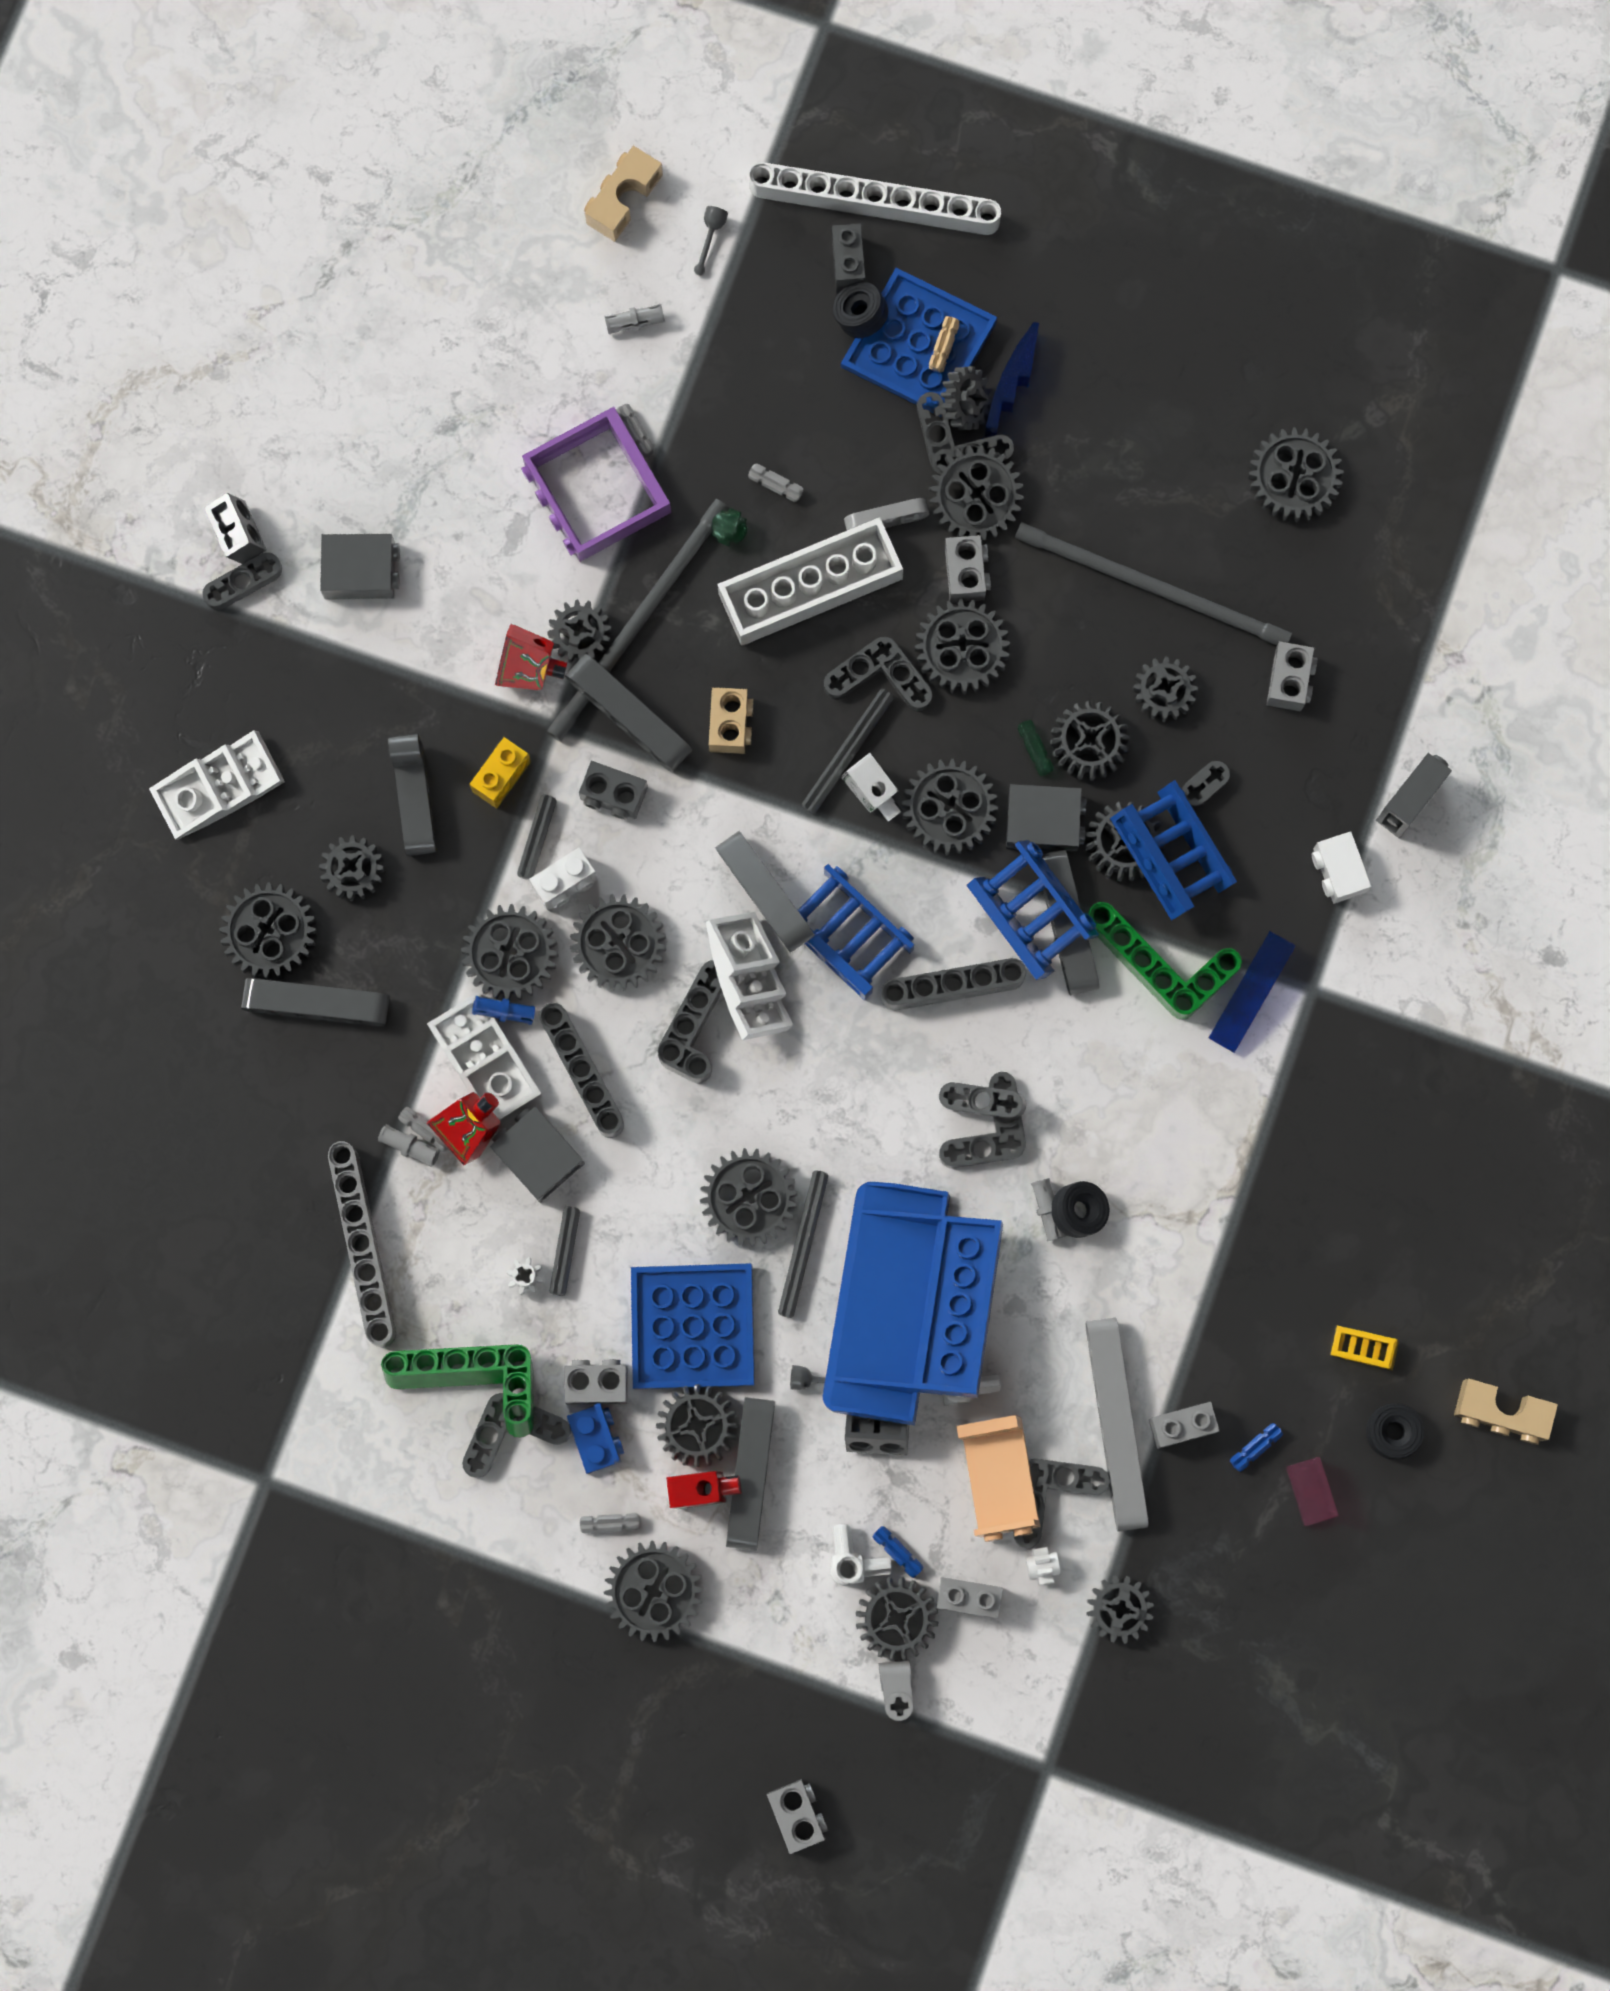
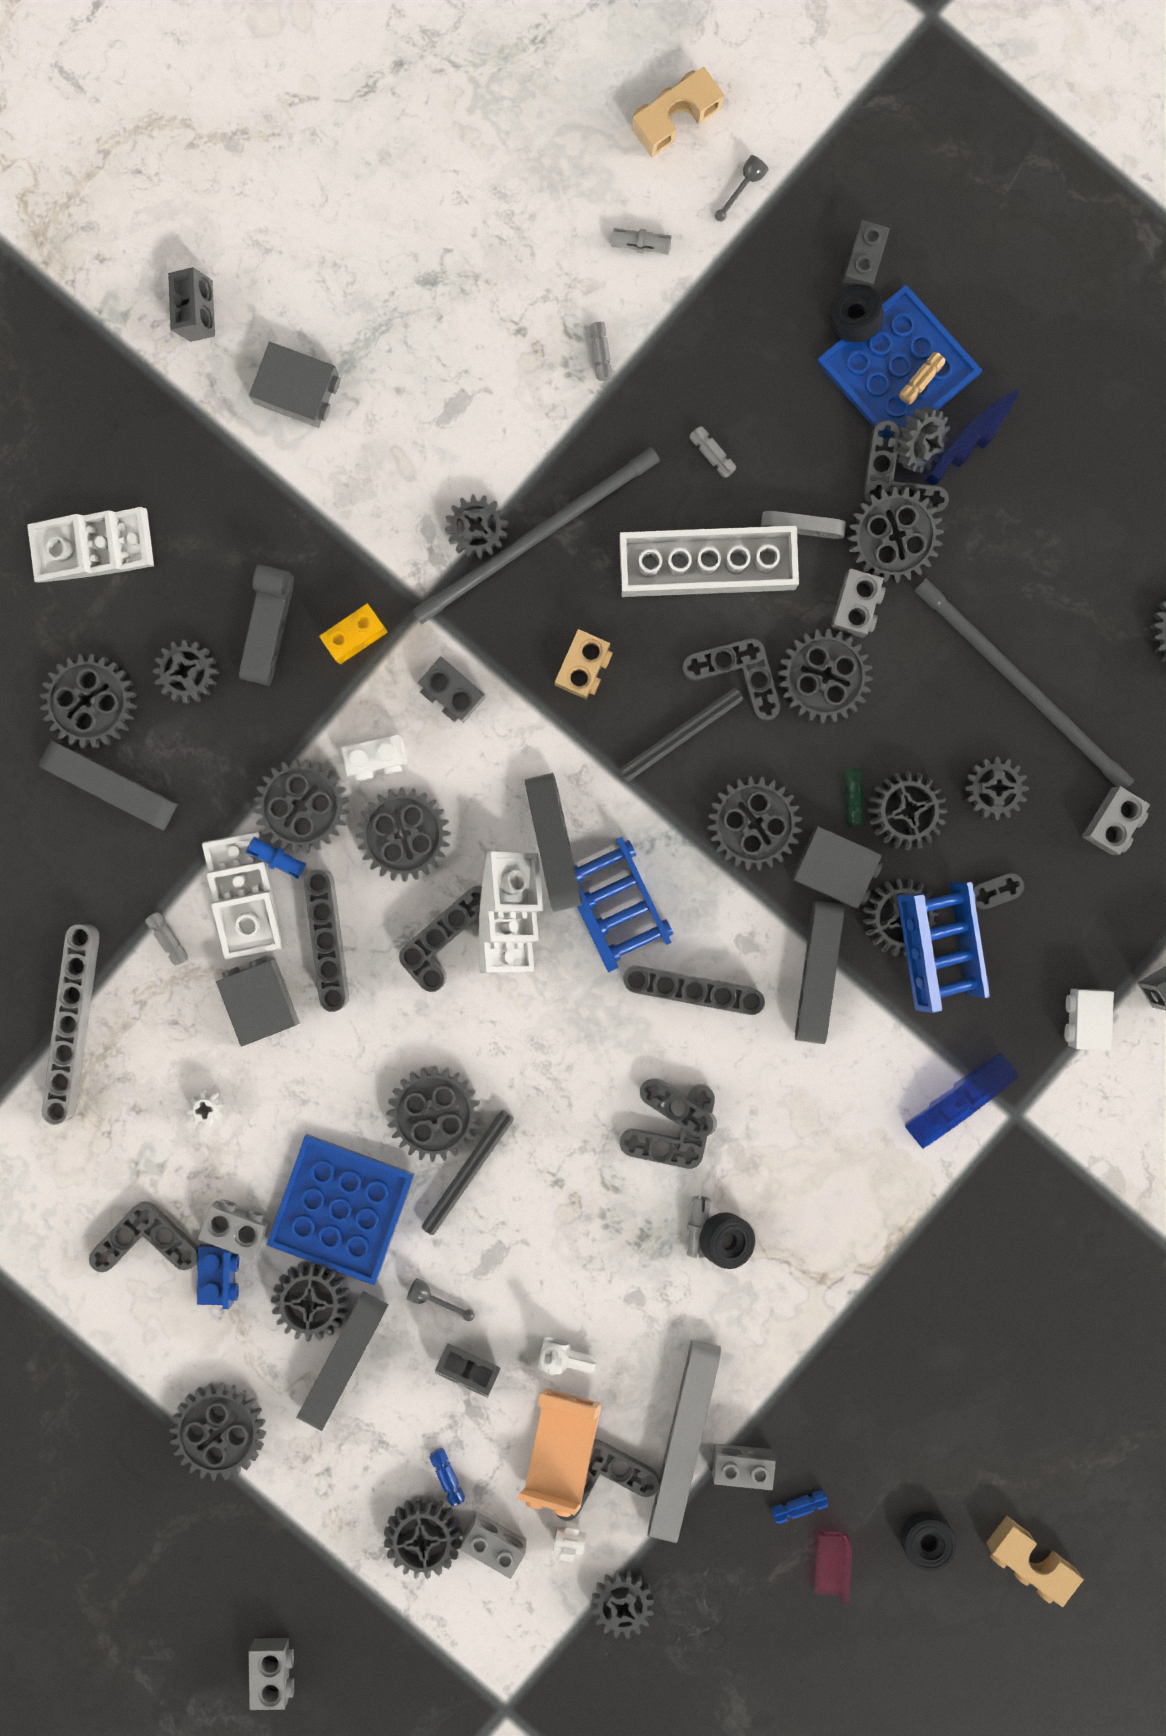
camera: 20 degrees right, 10 degrees up
(256, 563) = (173, 349): dark grey beam -> none
(409, 1145) = (145, 948): light grey pin -> none
(467, 1125) = (202, 953): red torso -> none
(470, 1374) = (126, 1178): green beam -> none
(527, 660) = (416, 537): red torso -> none
(536, 837) = (366, 706): dark grey axle -> none
(564, 1251) = (251, 1097): dark grey axle -> none
(576, 436) = (537, 337): medium lavender window -> none
(610, 1523) = (202, 1355): light grey axle -> none
(628, 713) = (492, 622): dark grey beam -> none
(689, 1489) = (289, 1364): red torso -> none
(729, 527) = (653, 479): clear green gear -> none
(861, 1567) = (399, 1465): white axle -> none
(864, 188) = (906, 194): white beam -> none
(869, 774) = (685, 767): white torso -> none
(896, 1683) = (400, 1596): light grey piece -> none
(910, 1303) = (540, 1272): blue slope -> none
(1004, 913) = (771, 971): blue fence -> none
(1158, 967) = (884, 1044): green beam -> none
(1391, 1352) = (943, 1478): yellow slope -> none

